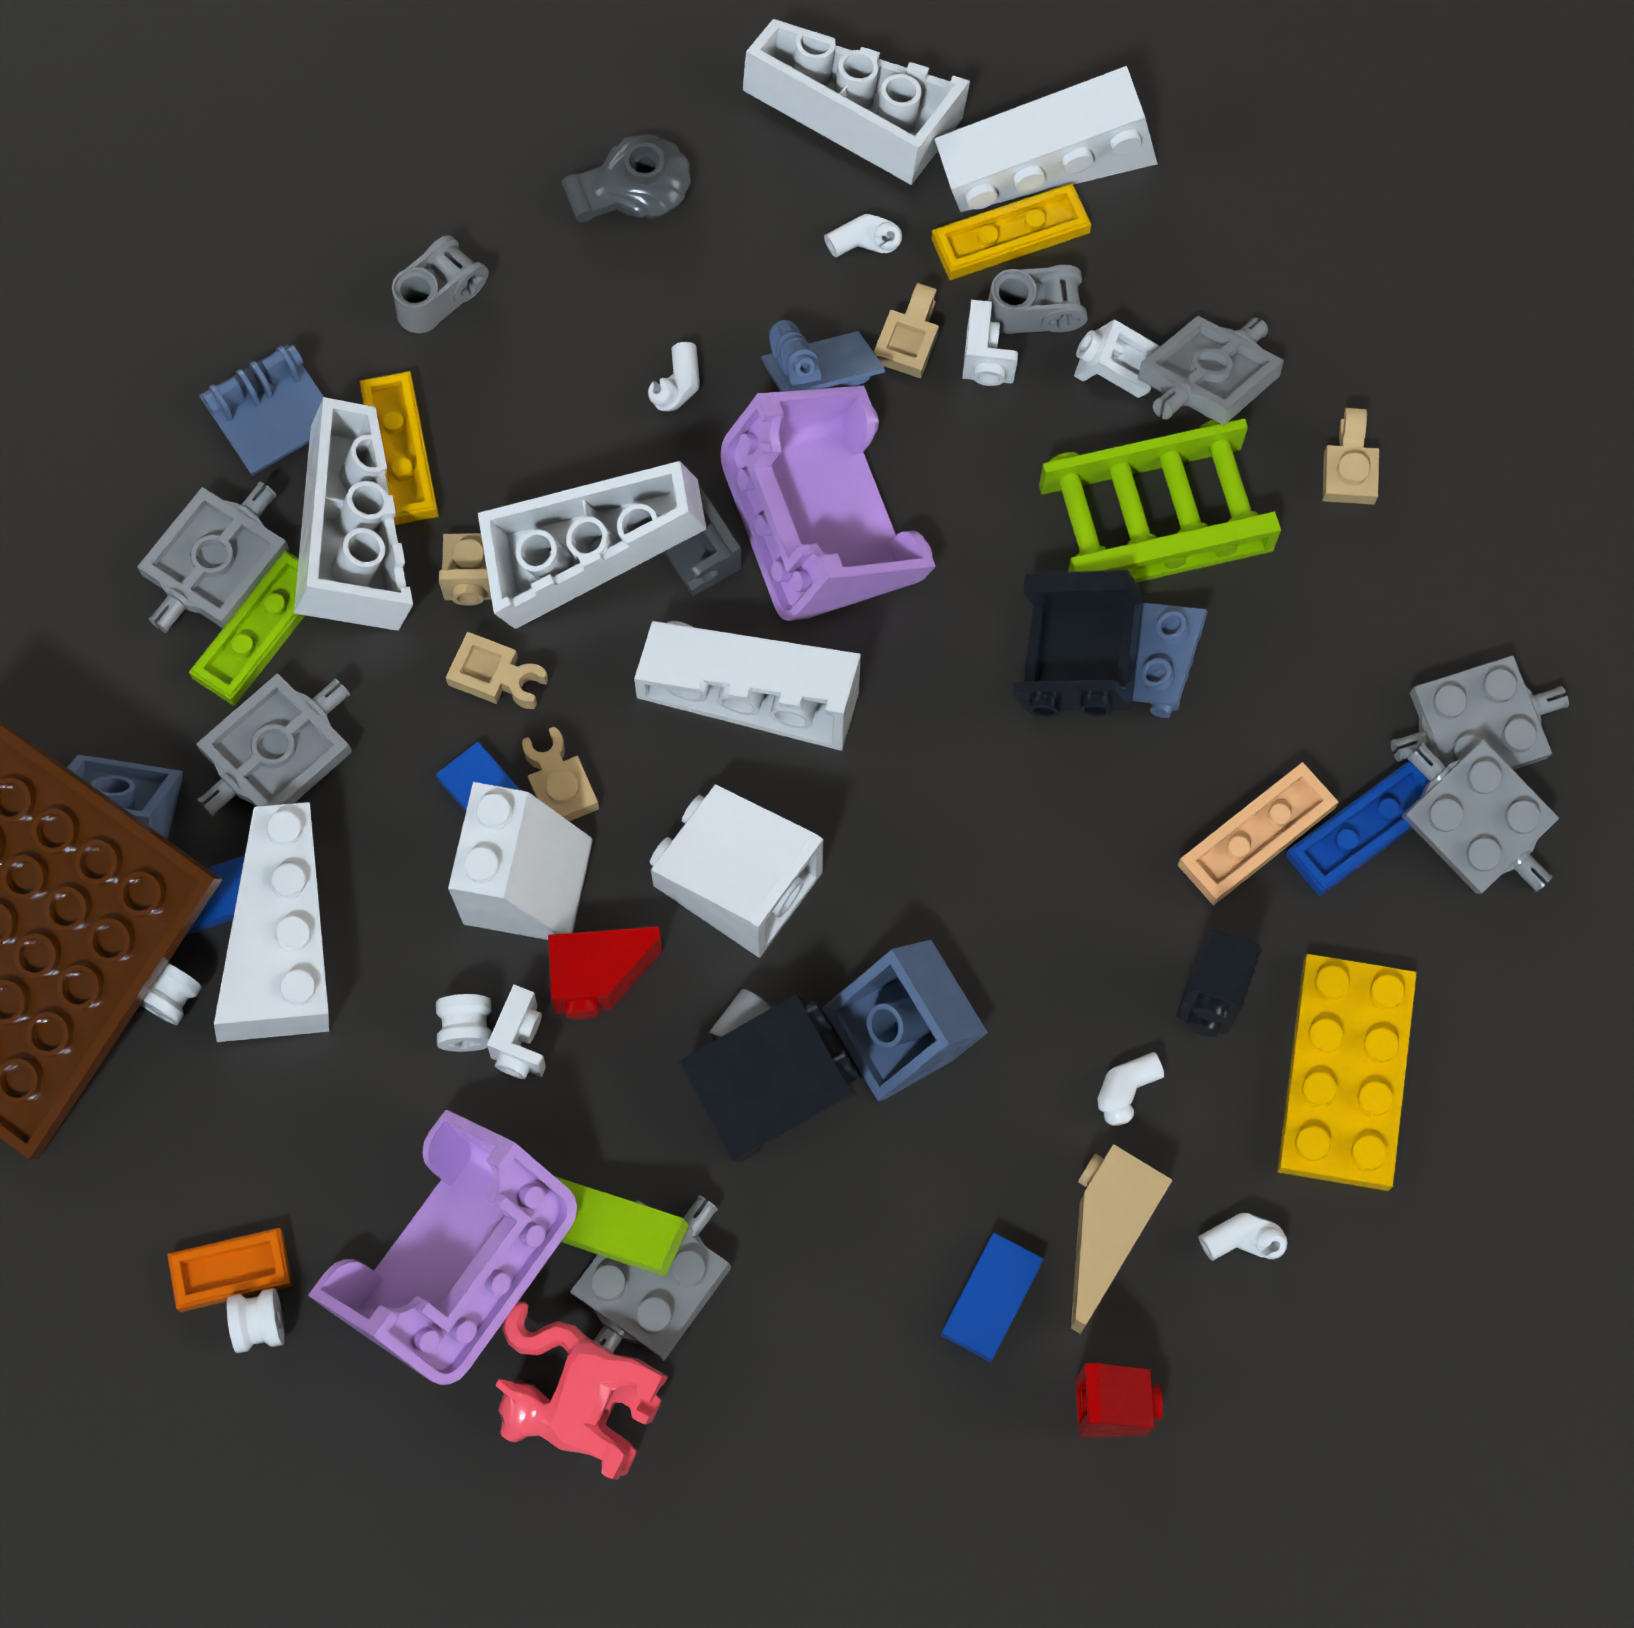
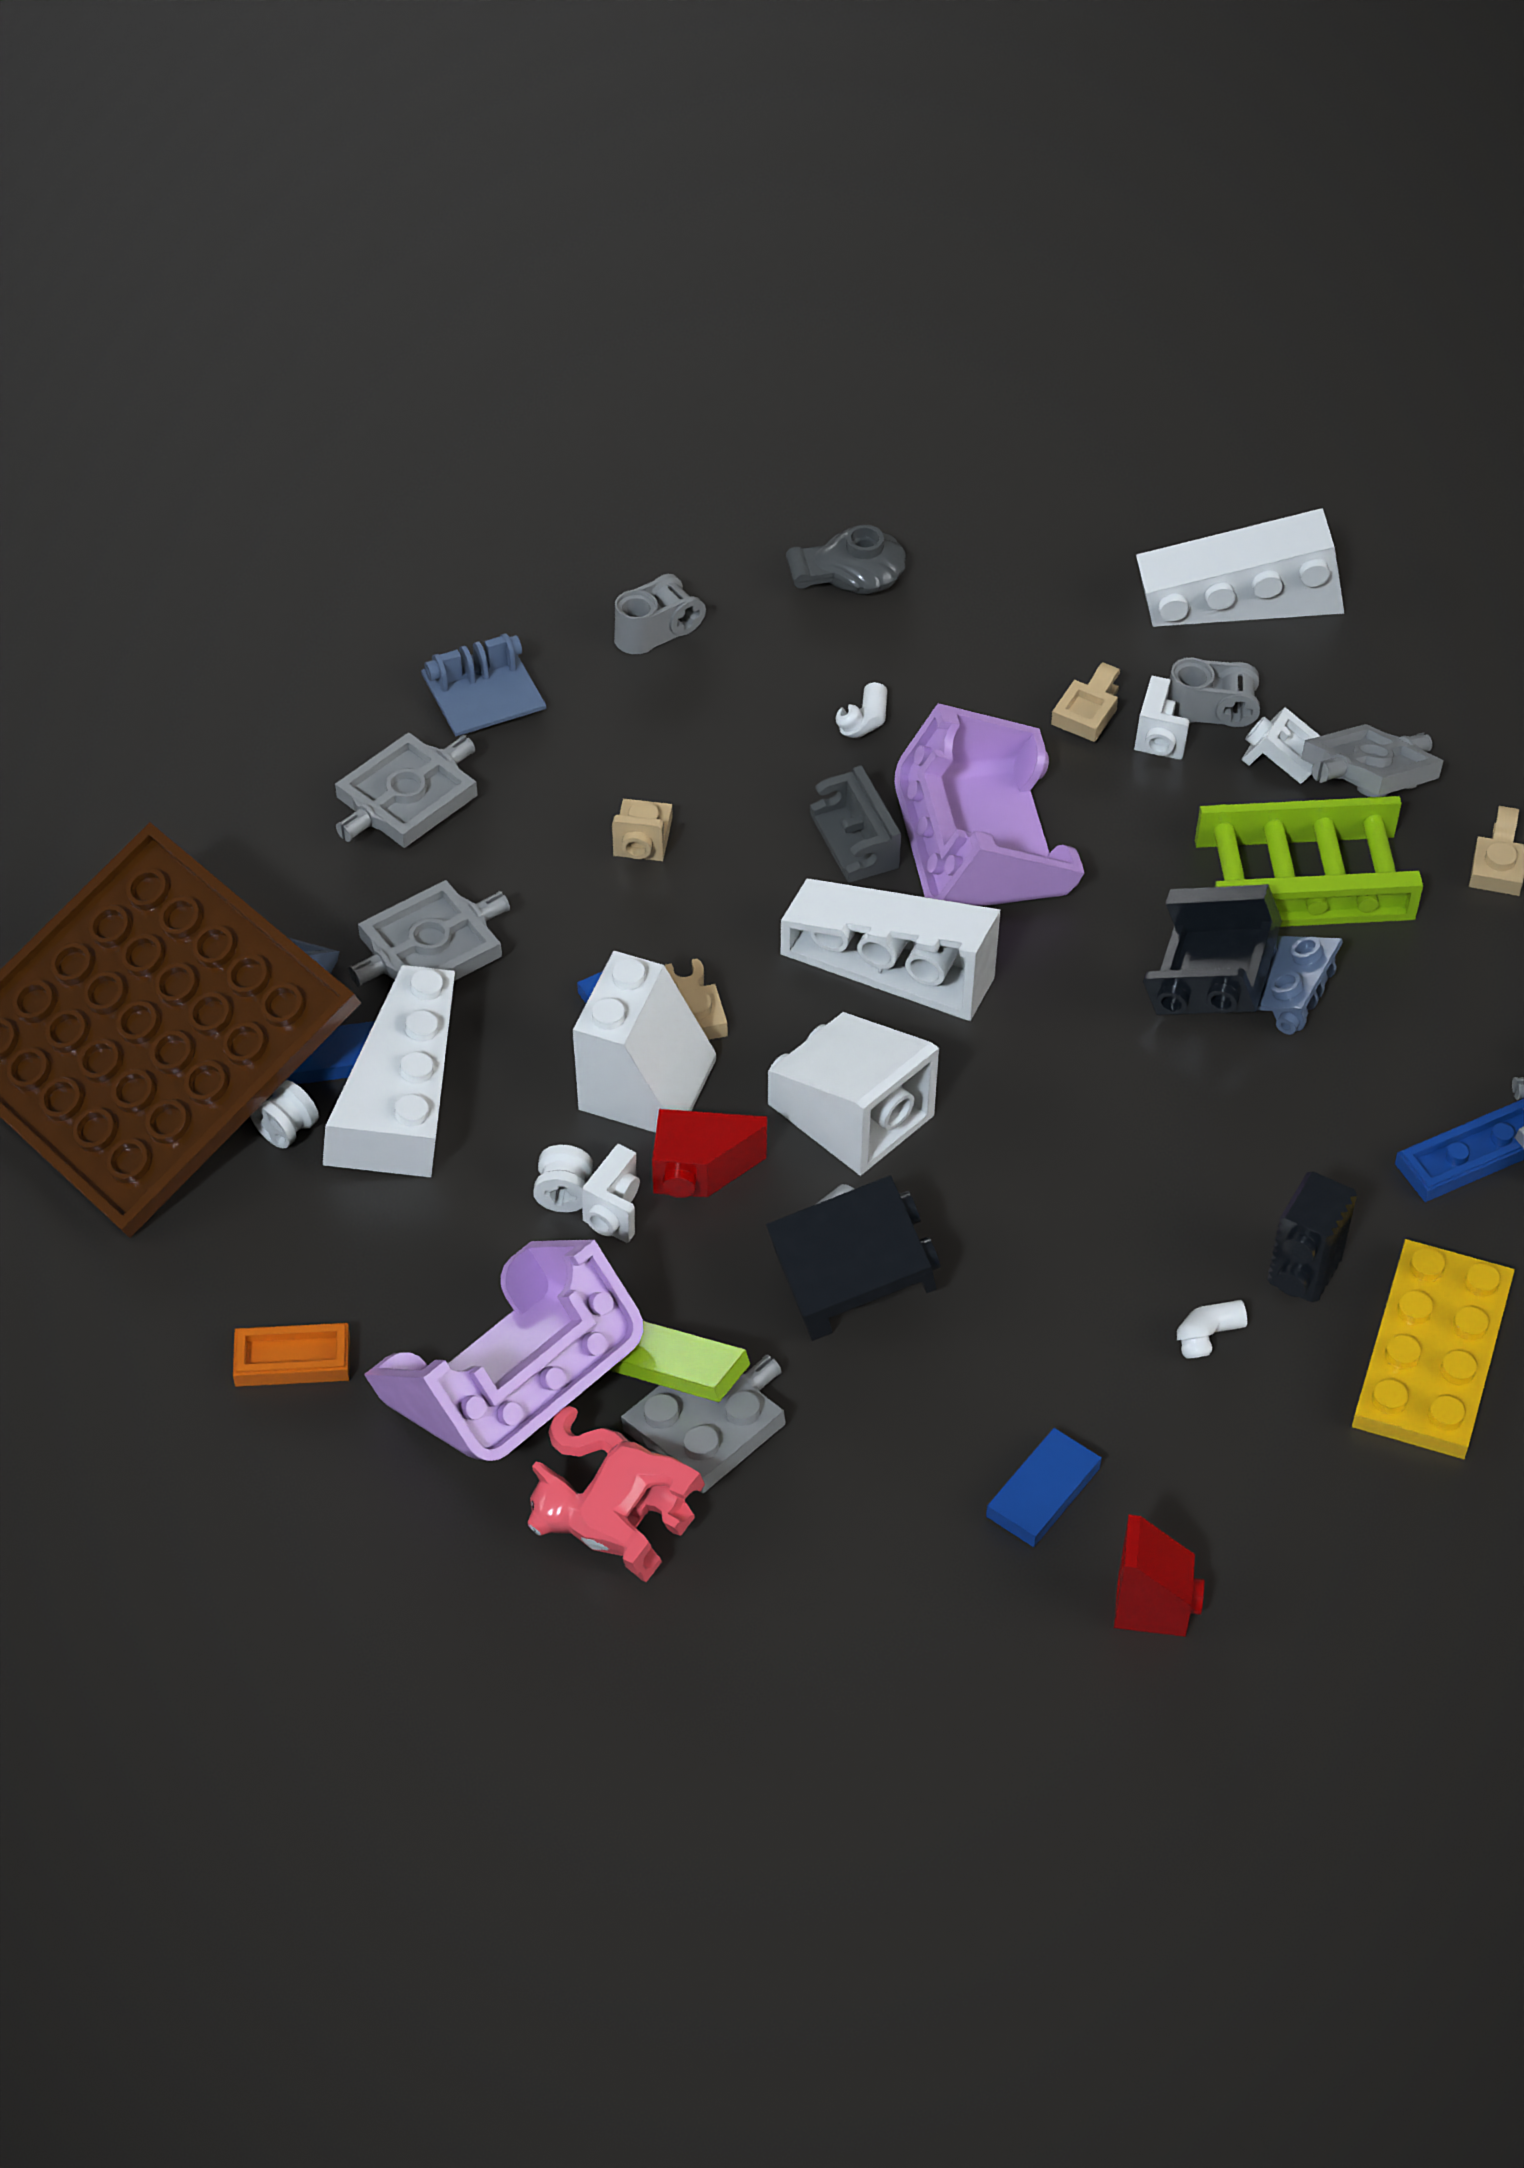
camera: 10 degrees right, 20 degrees down
(252, 634) = (436, 850): lime tile -> none
(255, 1320) = (307, 1393): white wheel -> none
(348, 532) = (536, 782): white wedge -> none
(403, 445) = (595, 734): yellow tile -> none
(490, 668) = (647, 905): tan plate -> none
(581, 537) = (756, 803): white wedge -> none
(819, 364) = (982, 697): sand blue hinge -> none
(855, 97) = (1066, 519): white wedge -> none
(865, 232) = (1060, 626): white arm -> none
(904, 1018) = (994, 1234): sand blue slope -> none
(1011, 231) = (1214, 639): yellow tile -> none
(1111, 1217) = (1182, 1426): tan slope -> none
(1246, 1233) = (1312, 1468): white arm -> none
(1257, 833) = (1370, 1132): light nougat plate -> none

